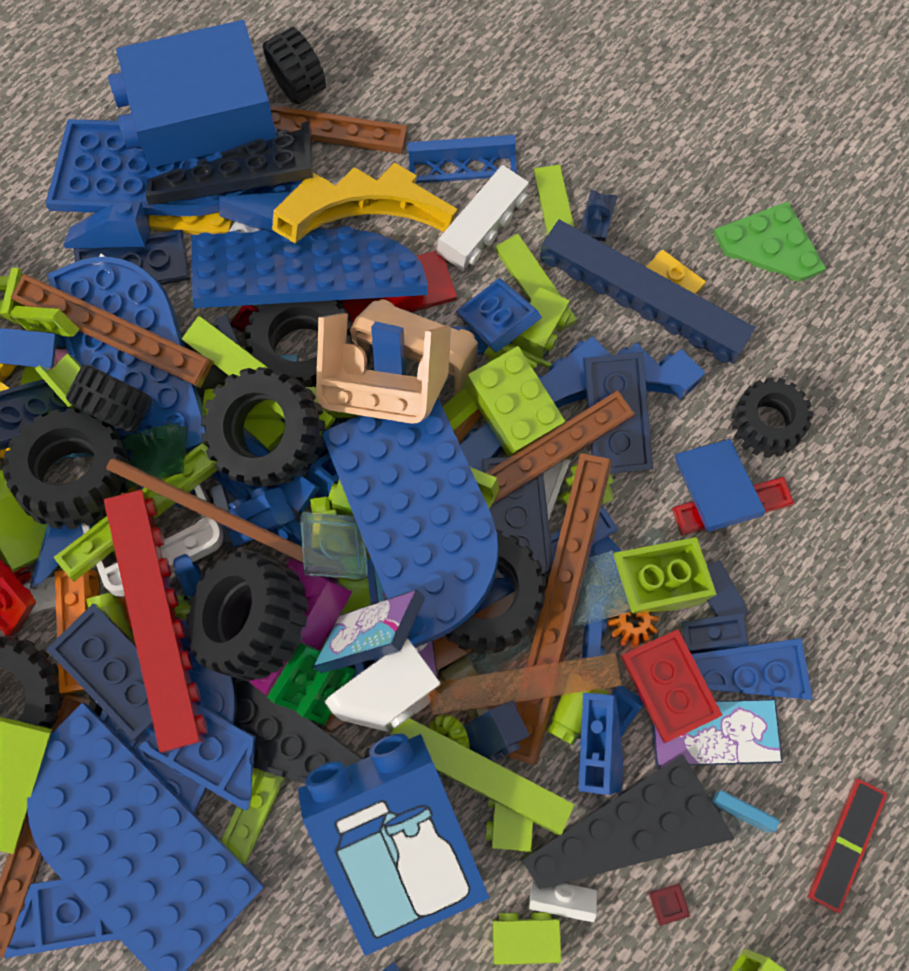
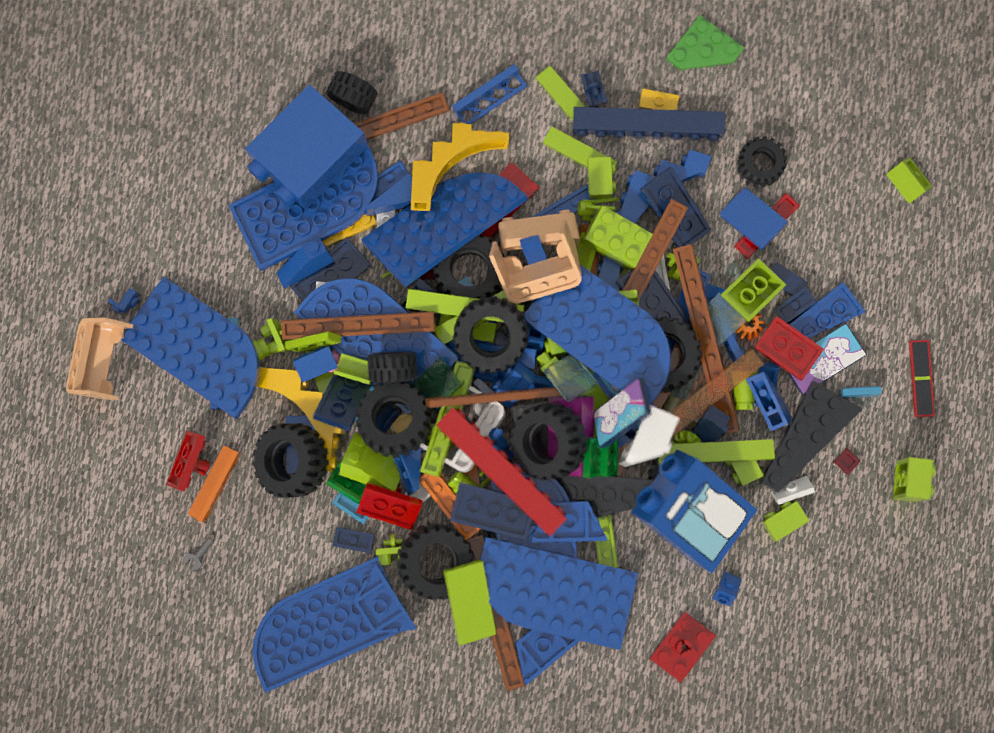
camera: 30 degrees left, 10 degrees up
(68, 470) = (386, 418): none -> dark blue tile
(239, 168) = (369, 177): black wing -> none
(482, 218) = (526, 128): white brick -> none
(498, 314) = (573, 187): blue tile -> none

